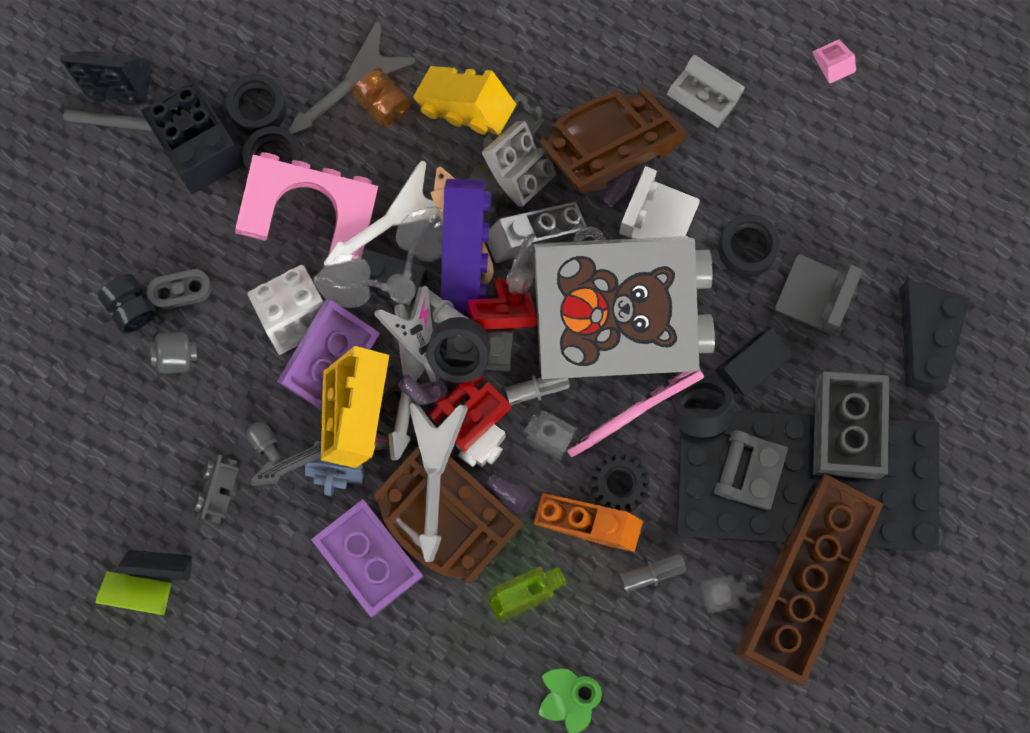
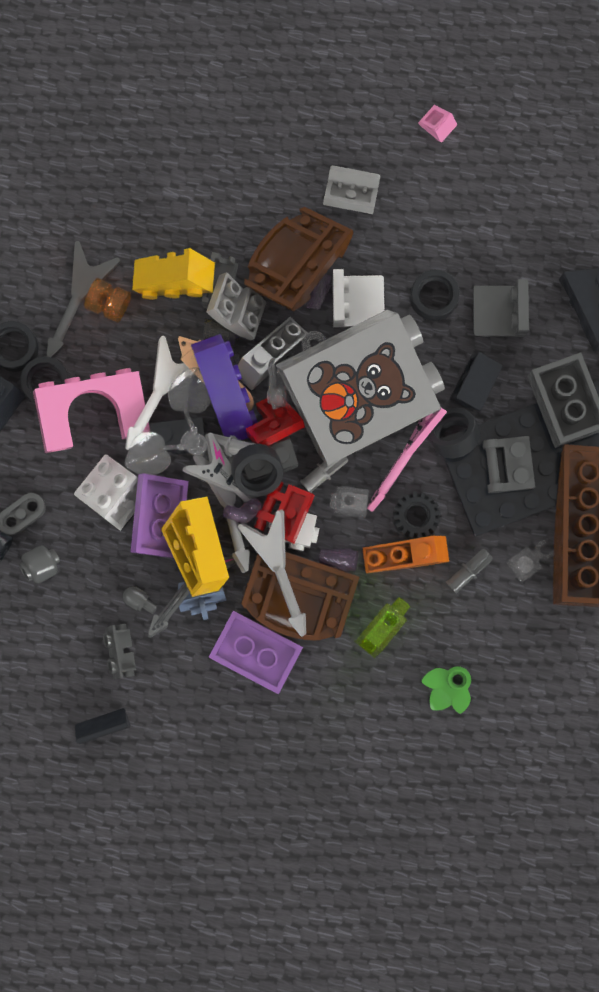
camera: 25 degrees left, 5 degrees up
(134, 593) = (94, 754): lime slope -> none

